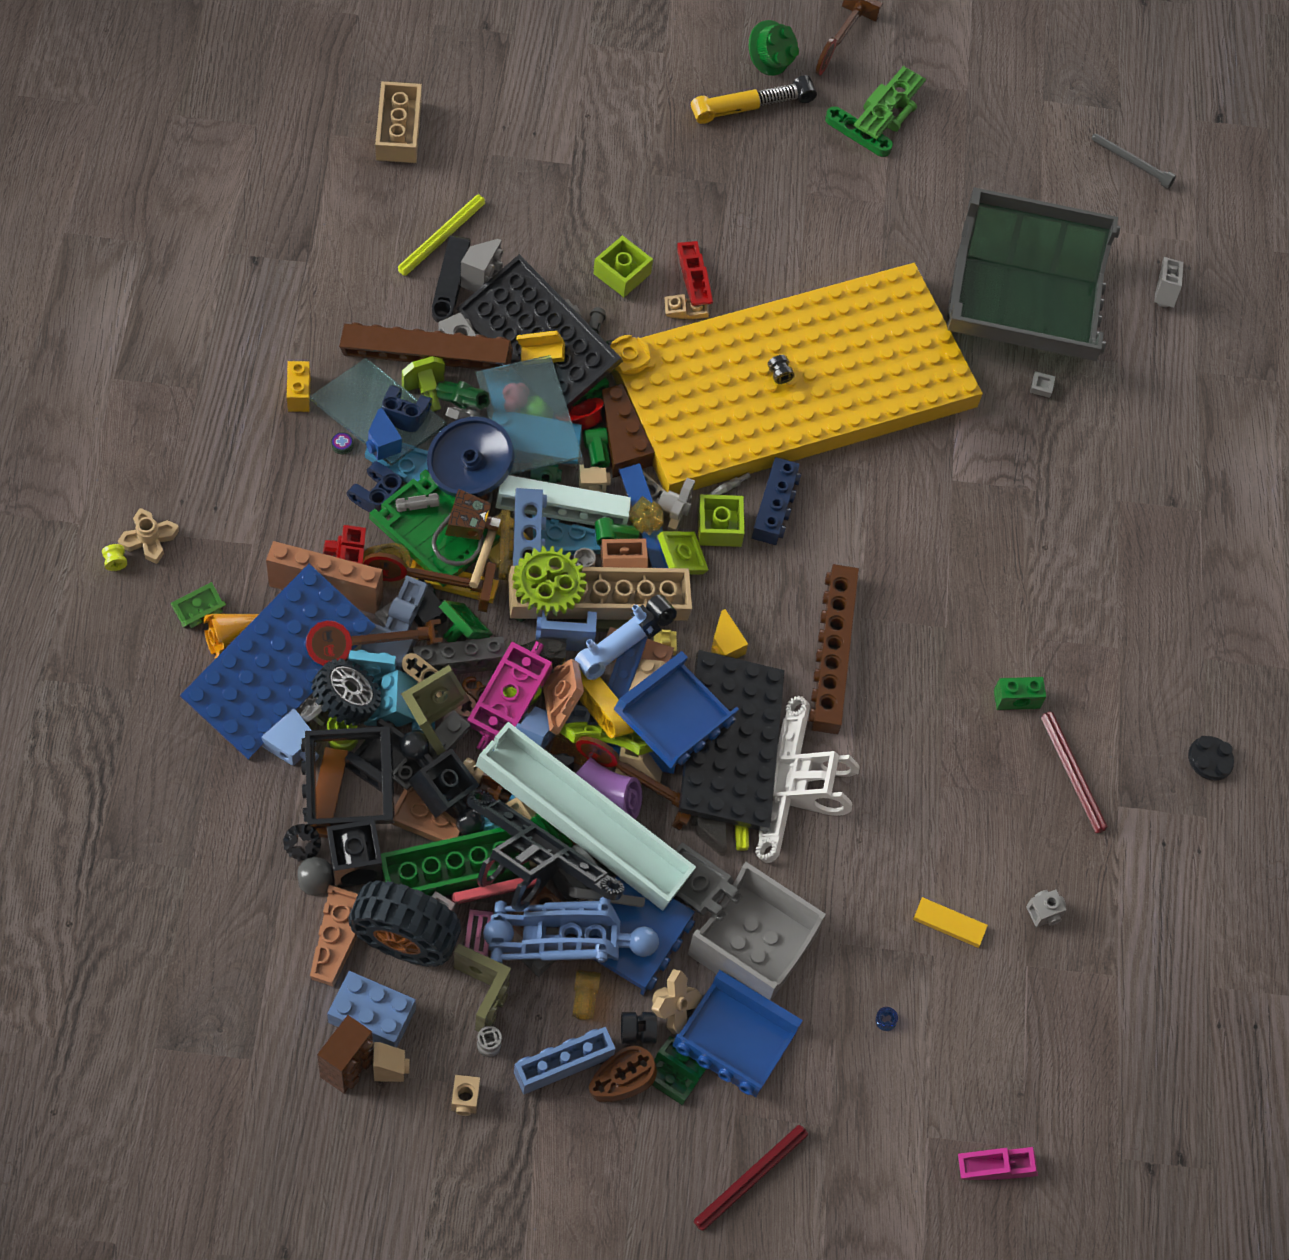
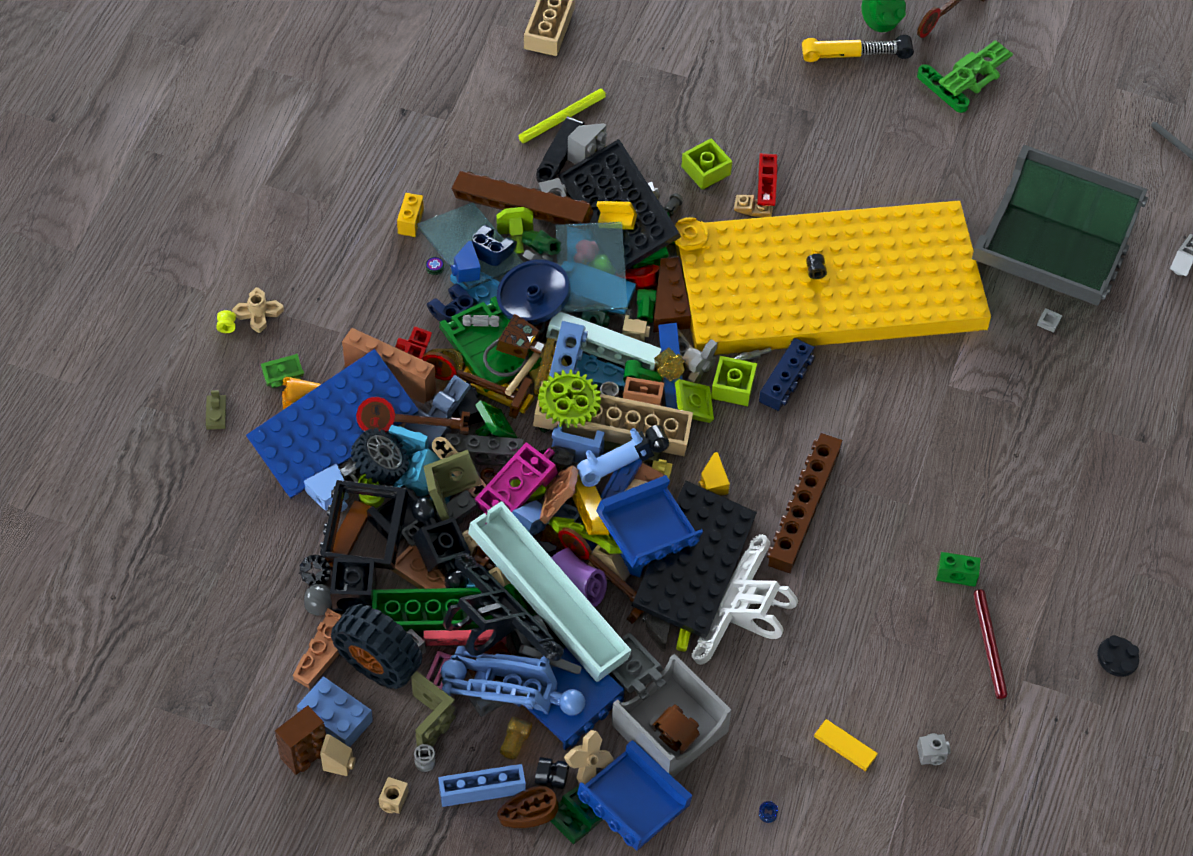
camera: 20 degrees right, 5 degrees down
(131, 669) = (216, 410): none -> olive plate
(768, 948) = (676, 729): none -> reddish brown brick

